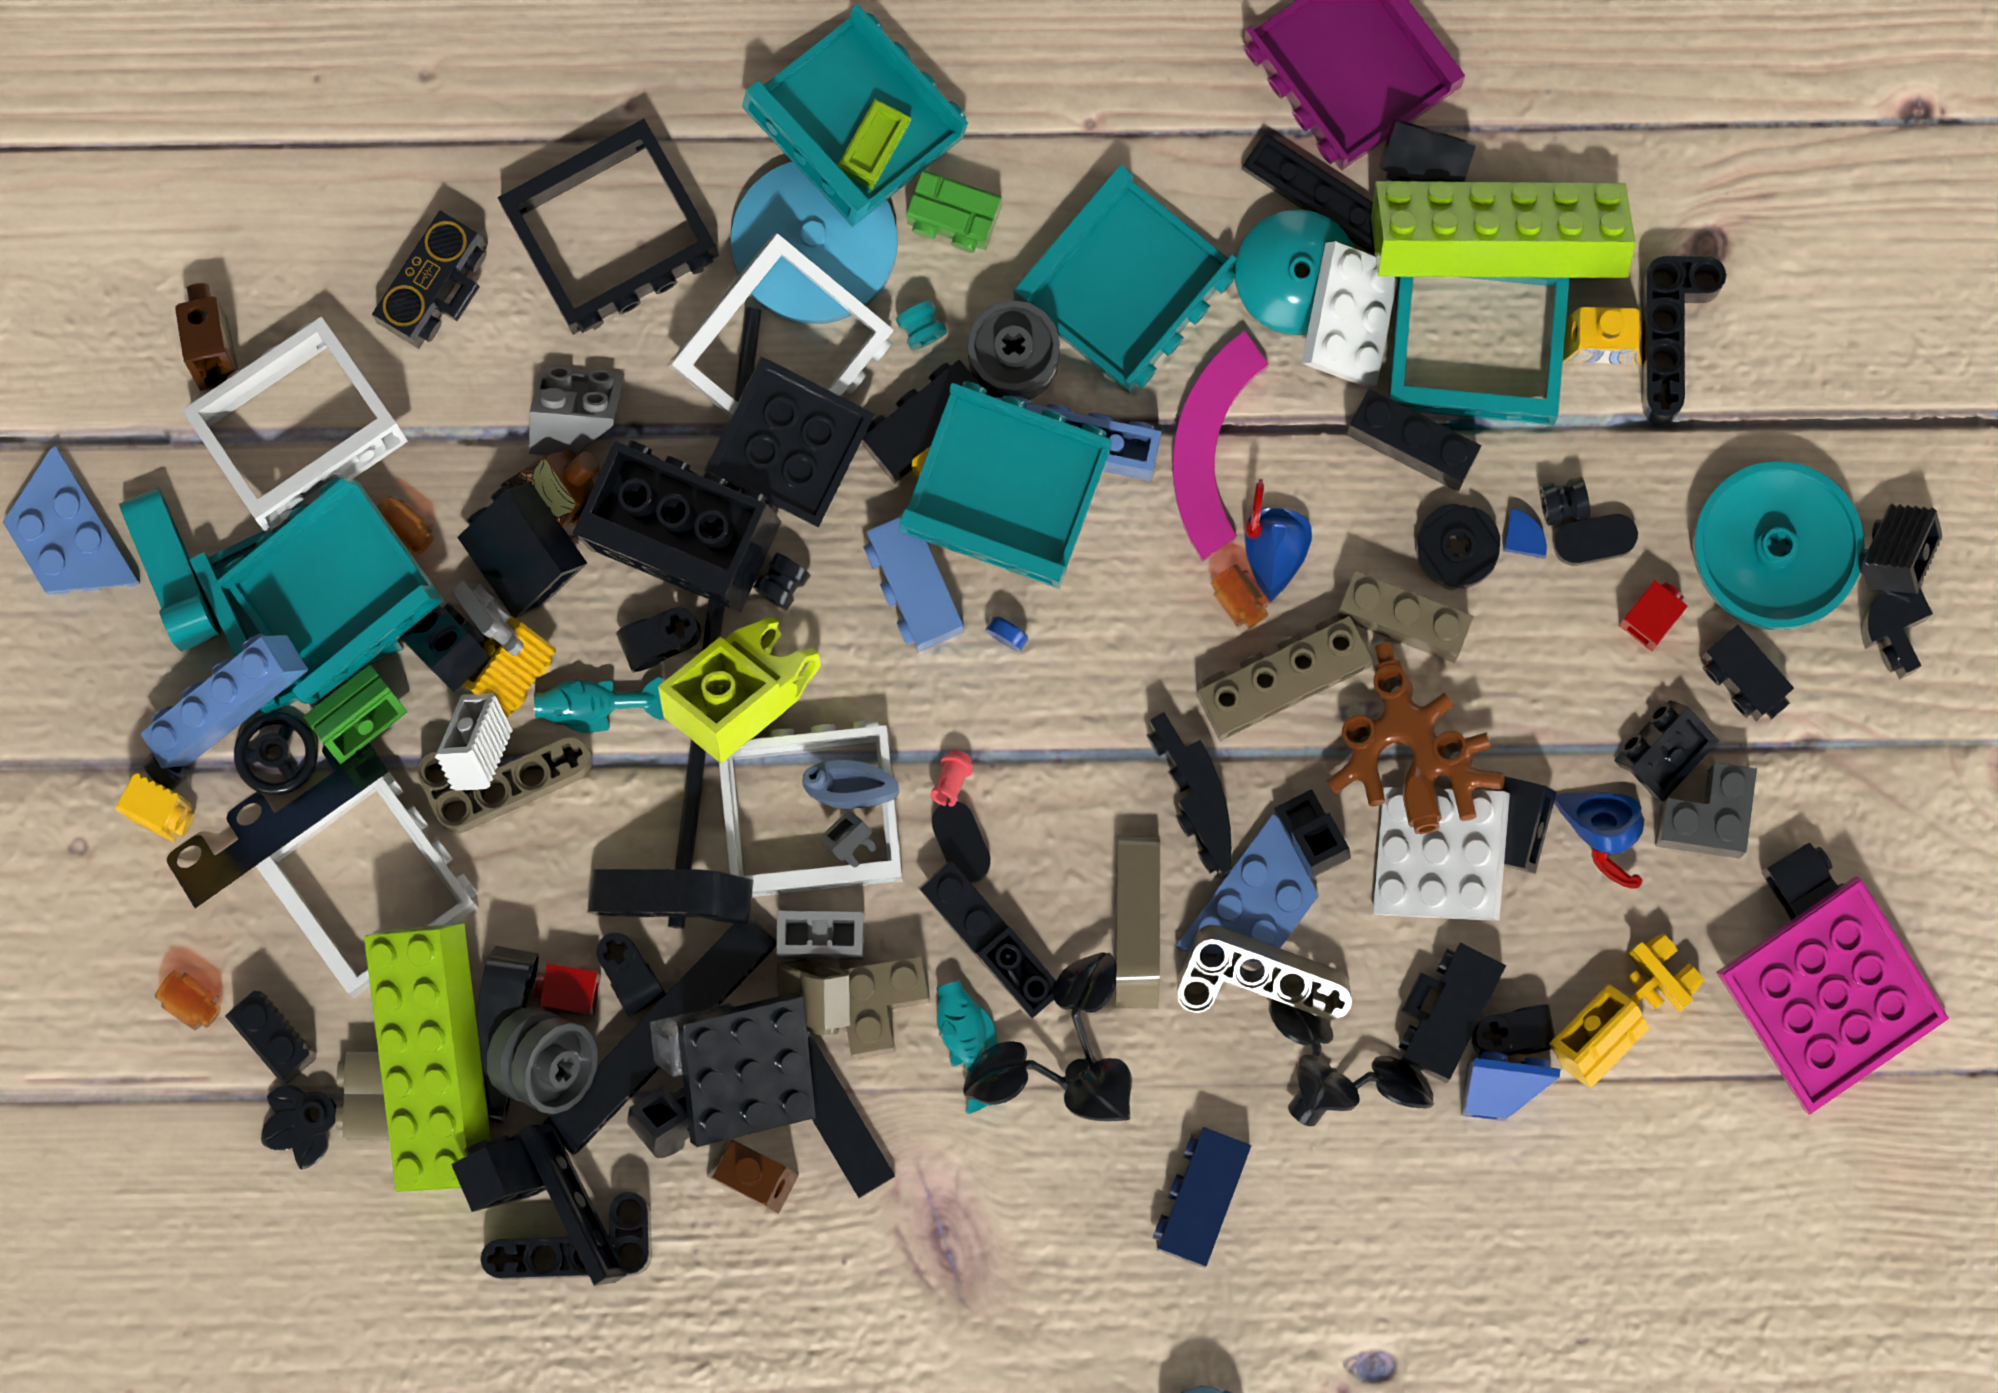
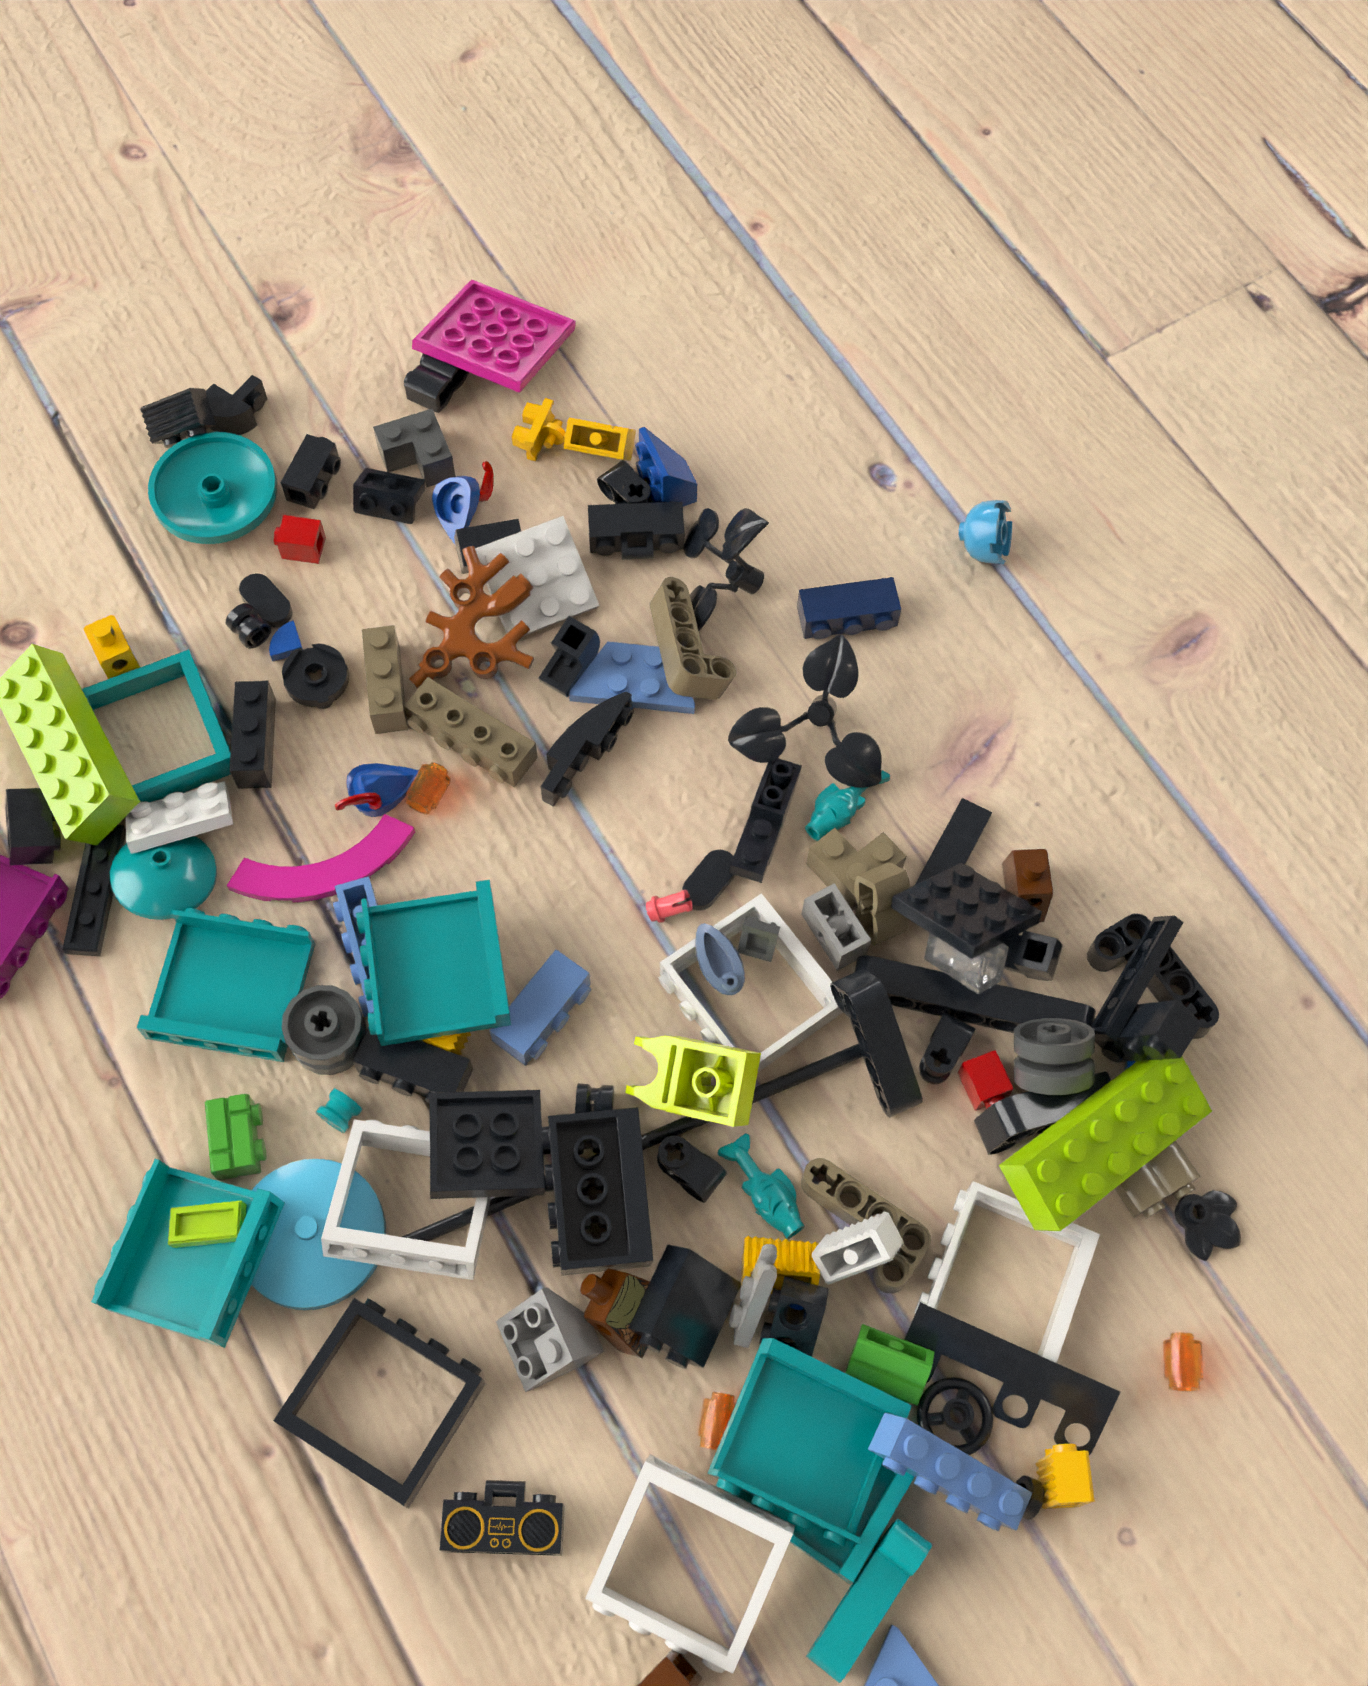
camera: 125 degrees left, 15 degrees down
(271, 1036) = (1166, 1279): black brick -> none
(1007, 633) = (542, 924): blue tile -> none
(1138, 922) = (689, 733): dark tan beam -> none
(1672, 339) = (135, 604): black beam -> none

